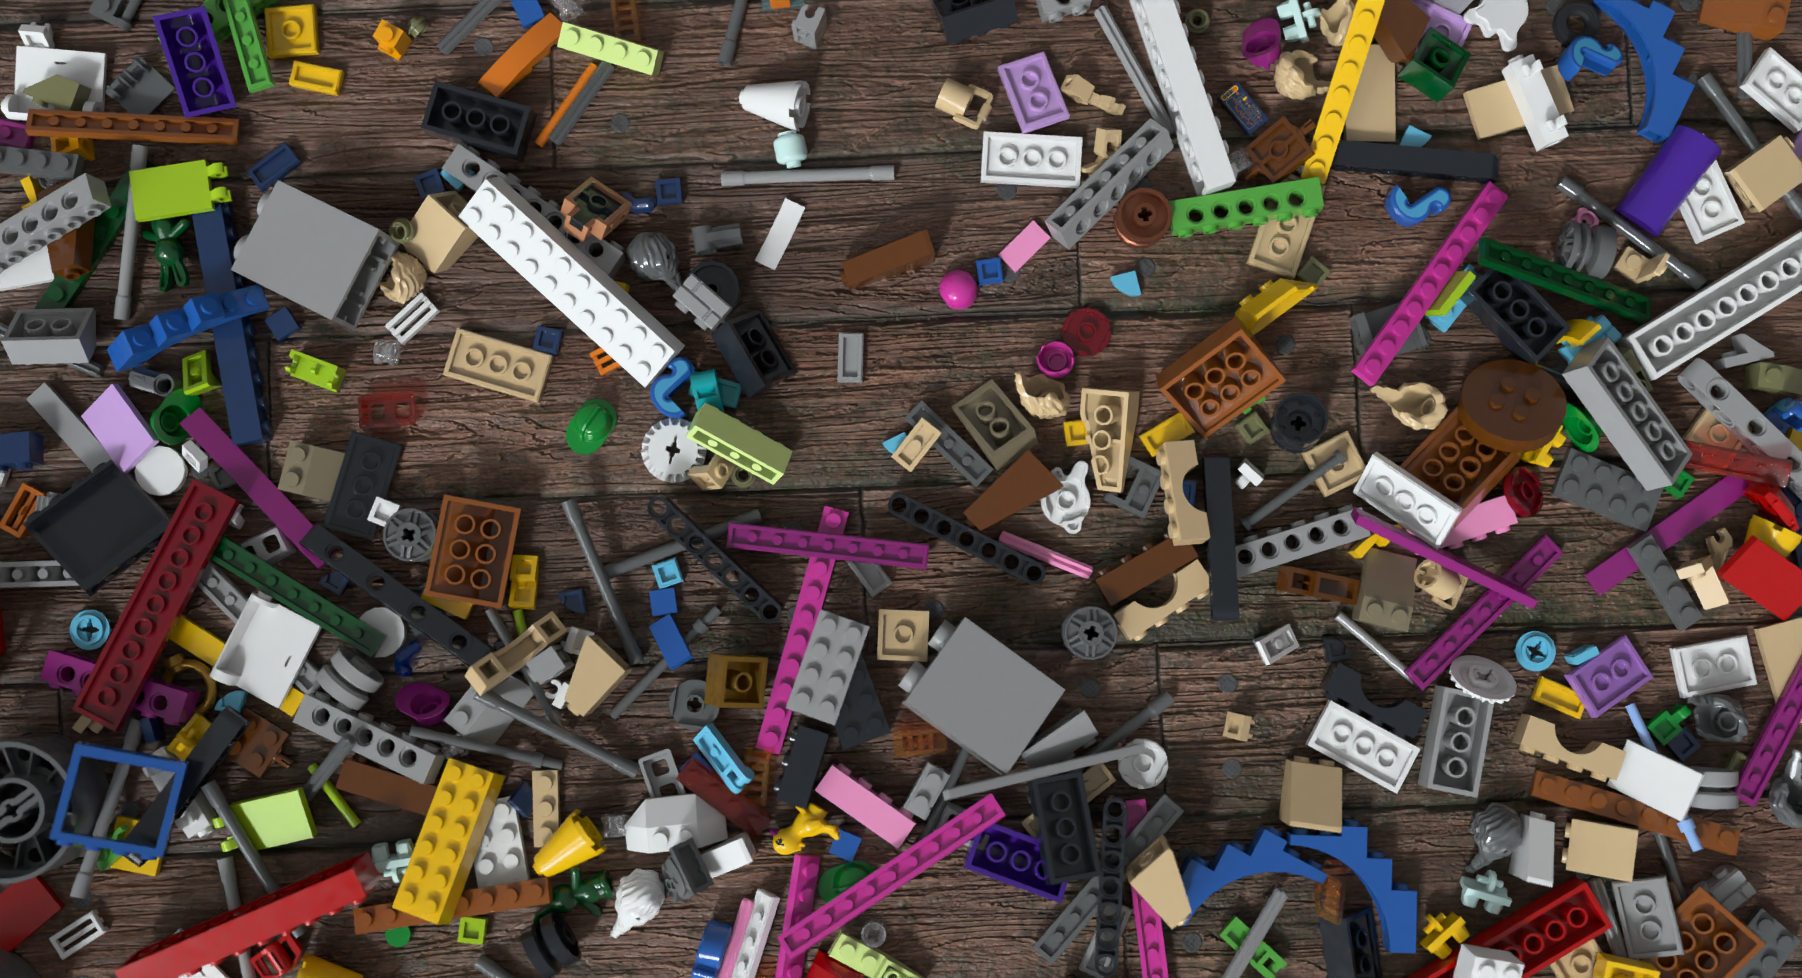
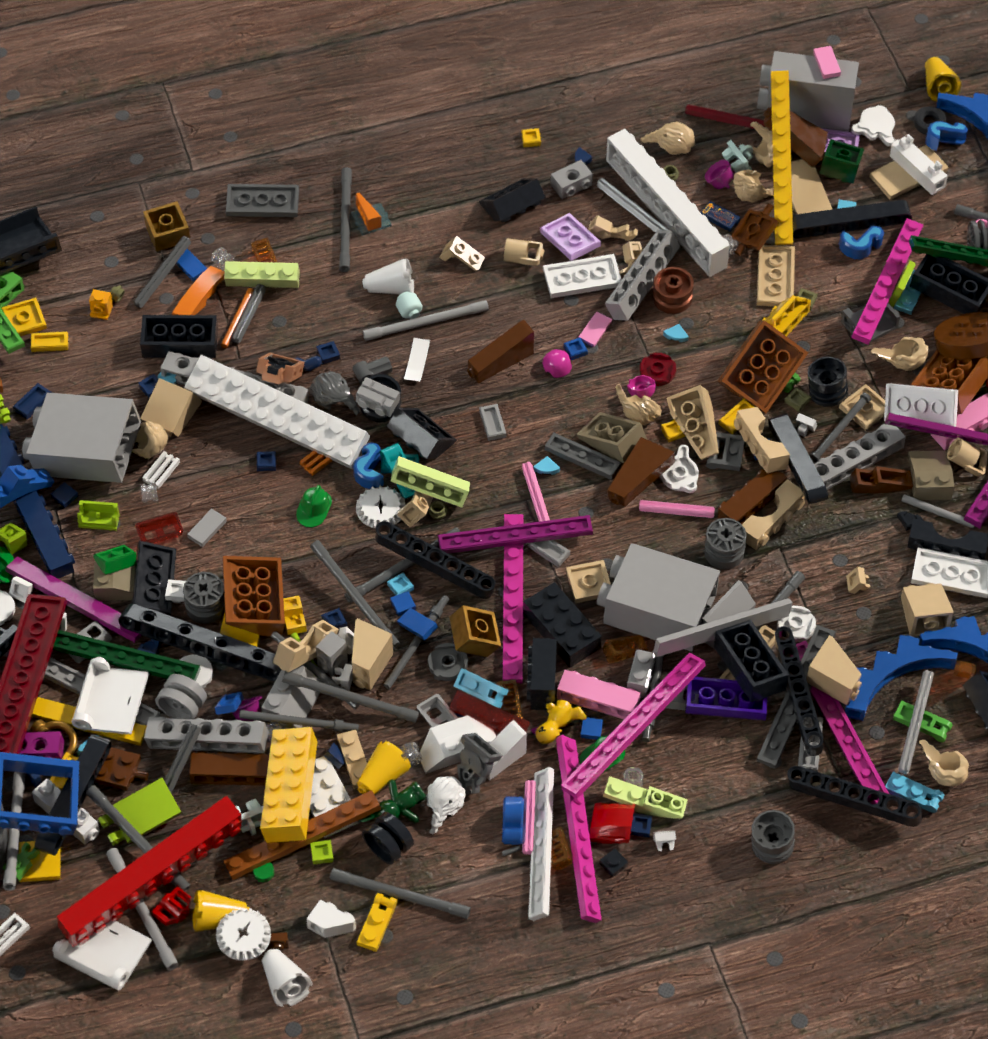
camera: 15 degrees left, 30 degrees down
(312, 454) = (115, 559): none -> green slope
(338, 800) = (190, 792): lime bar -> none
(396, 231) = (142, 402): olive plate -> none
(403, 657) = (215, 684): clear blue arm -> none
(408, 699) = (229, 703): none -> blue tile
(448, 422) = (207, 527): none -> light grey tile
(498, 365) = (233, 484): tan tile -> none
(809, 30) = (400, 230): light grey hinge -> none
(827, 667) = (541, 596): light grey brick -> none
(873, 484) = (535, 492): none -> bright pink axle
(884, 82) = (462, 251): none -> bracket
(916, 444) = (559, 456): tan plate -> none
(975, 548) = (664, 518): black beam -> none
(1276, 644) = (861, 522): white slope -> none
(1306, 190) = (743, 267): bright green brick -> none
(1365, 544) = (911, 442): yellow slope -> none

